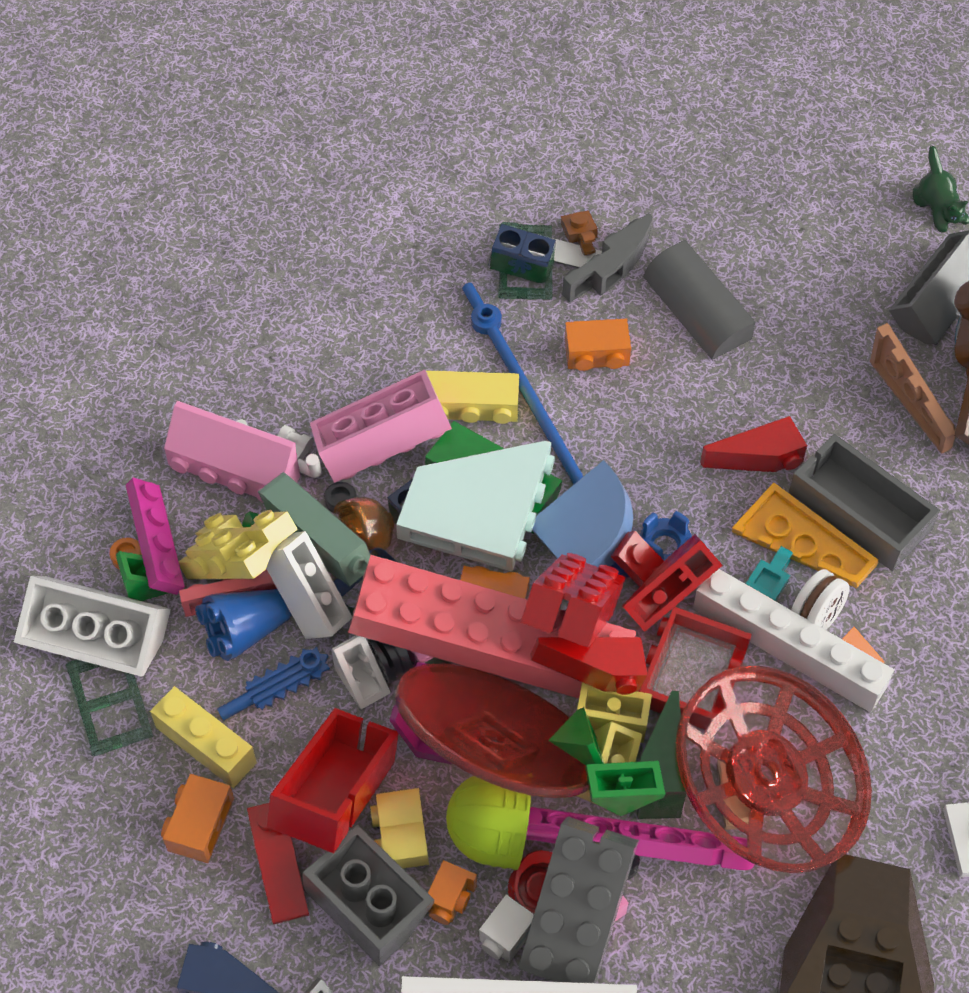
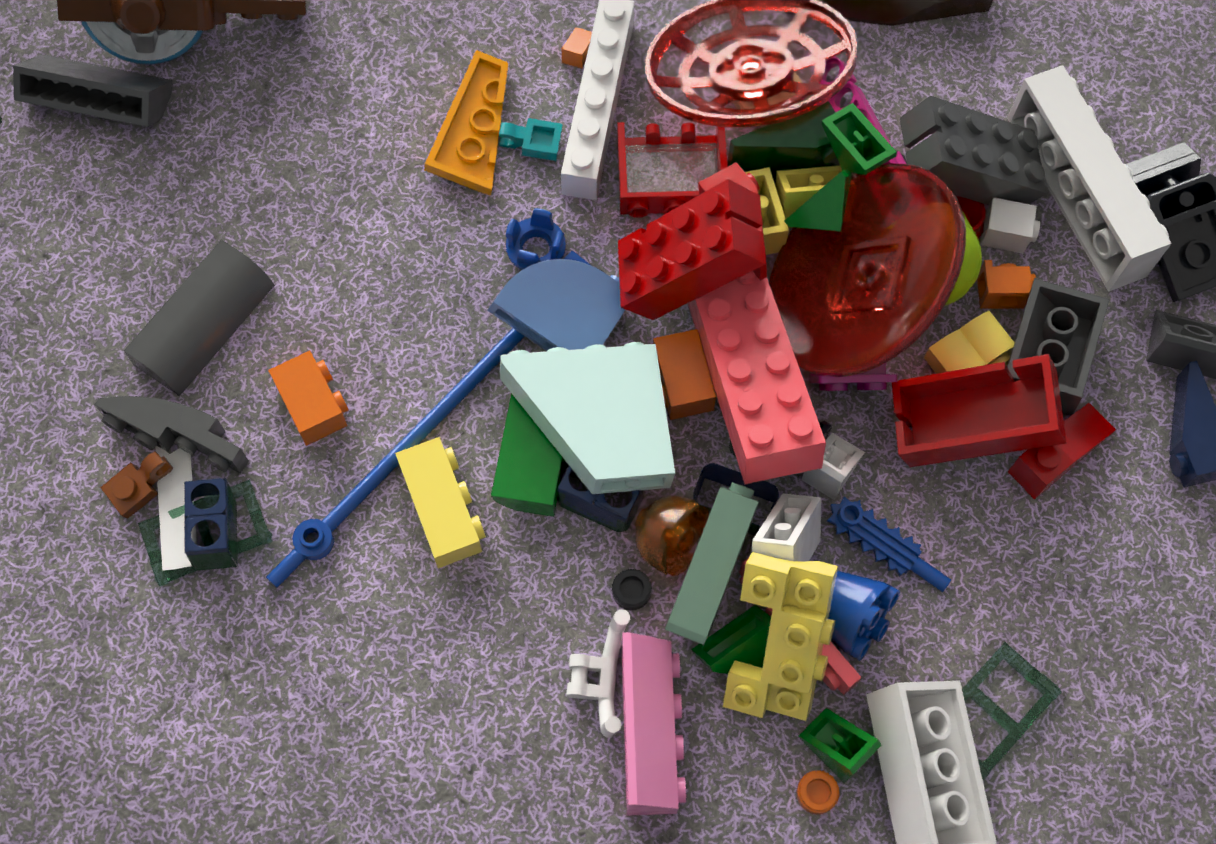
camera: 115 degrees left, 10 degrees up
(154, 536) = (789, 762): dark pink plate -> none
(197, 818) = (1069, 542): orange brick -> none
(203, 737) = (988, 579): light yellow brick -> none
(379, 426) = (533, 573): bright pink slope -> none
(636, 557) = (583, 241): red plate -> none
(672, 582) = (589, 200): red slope -> none
(760, 449) = (377, 184): red slope -> none
(821, 598) = (550, 79): white head -> none
(863, 501) = (414, 78): dark grey piece -> none
(907, 384) = (248, 78): nougat wing -> none

